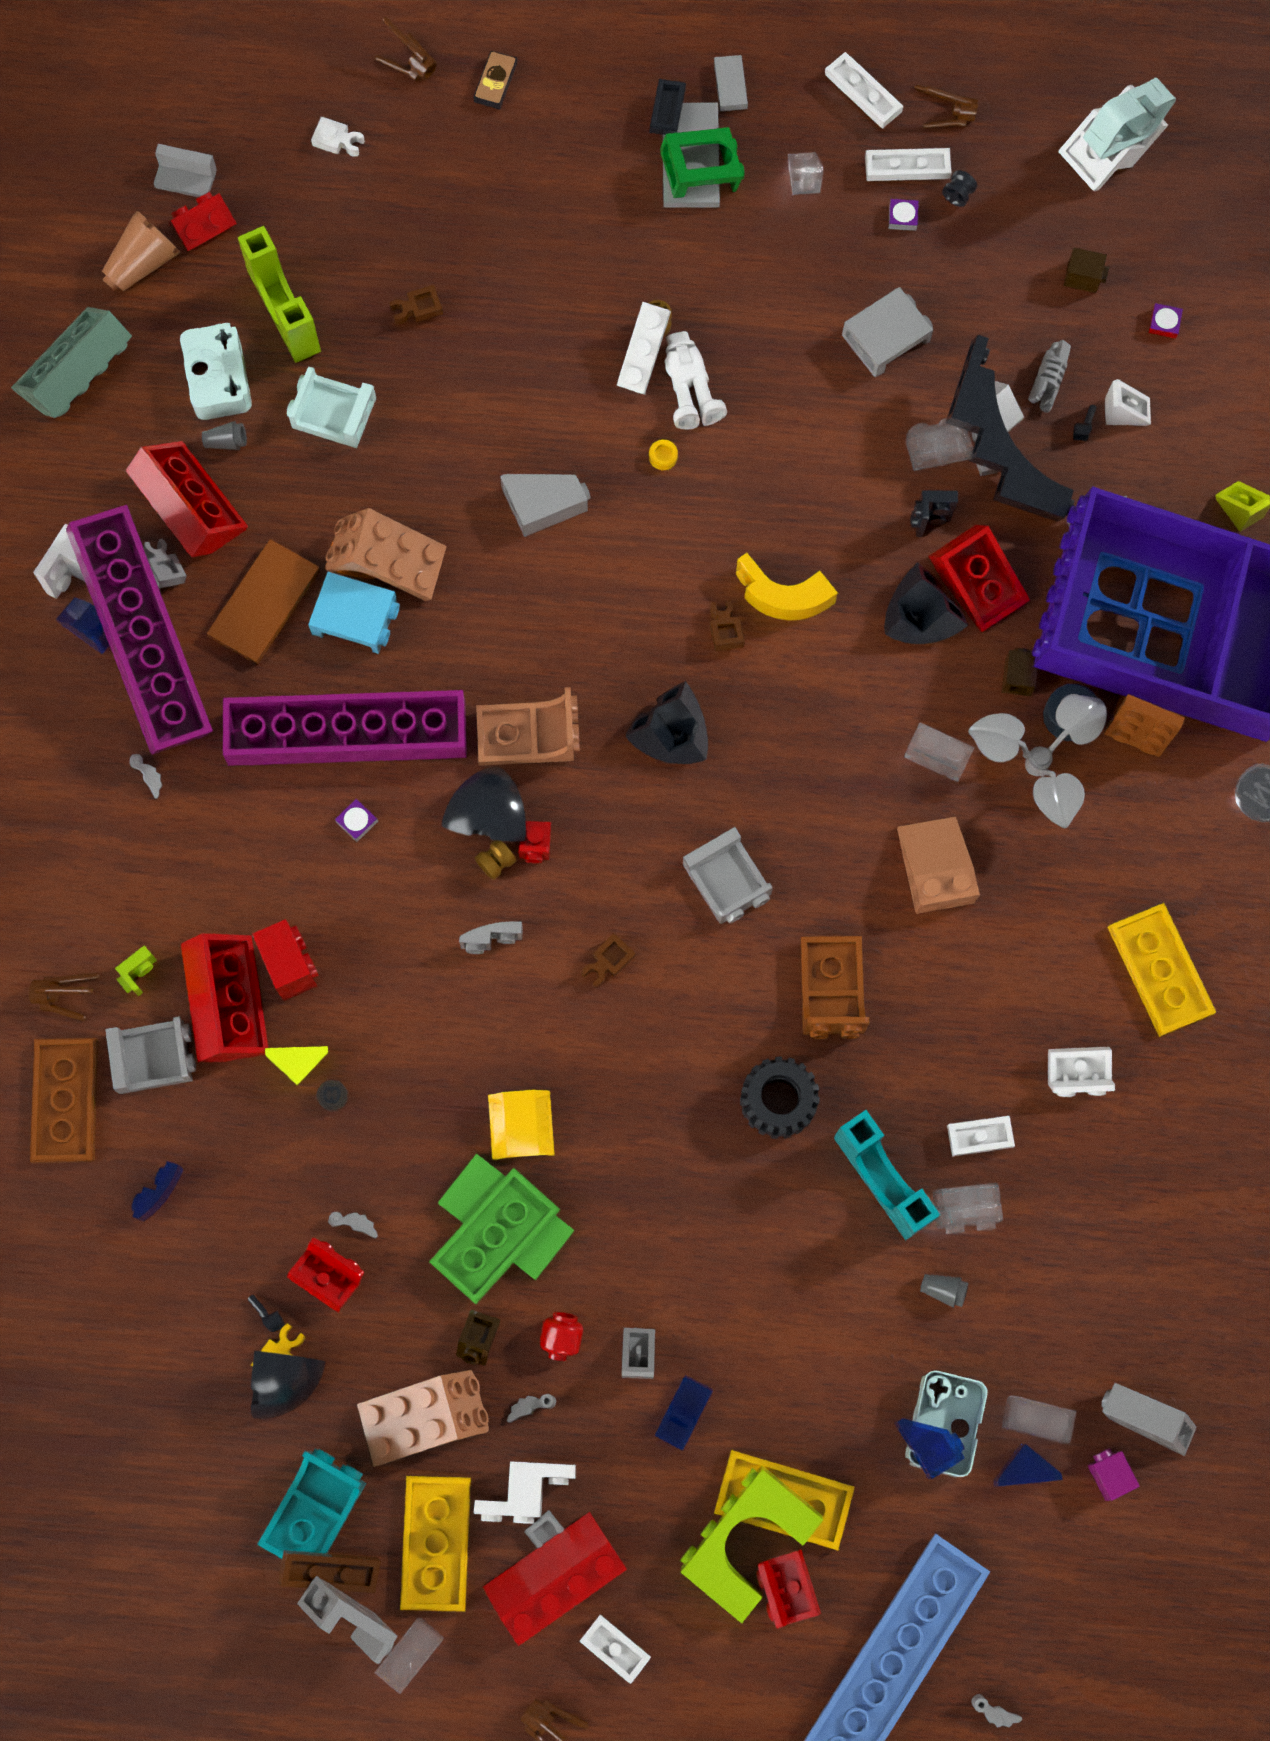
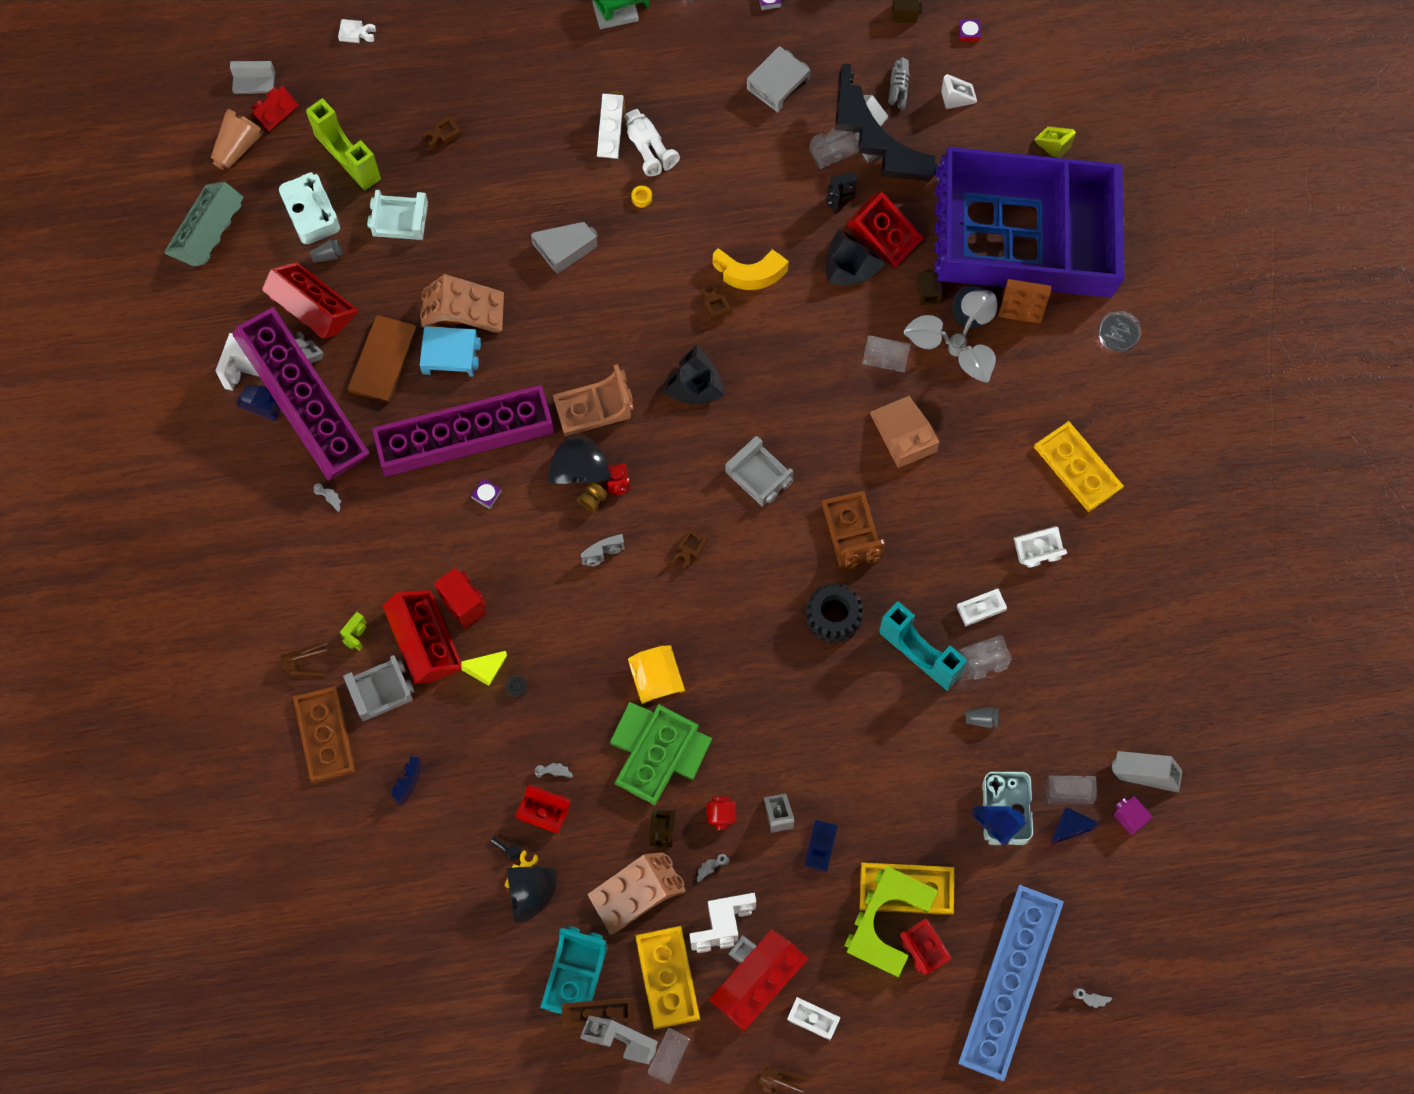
camera: 10 degrees left, 5 degrees down
(1082, 430) = (930, 116): black hand -> none

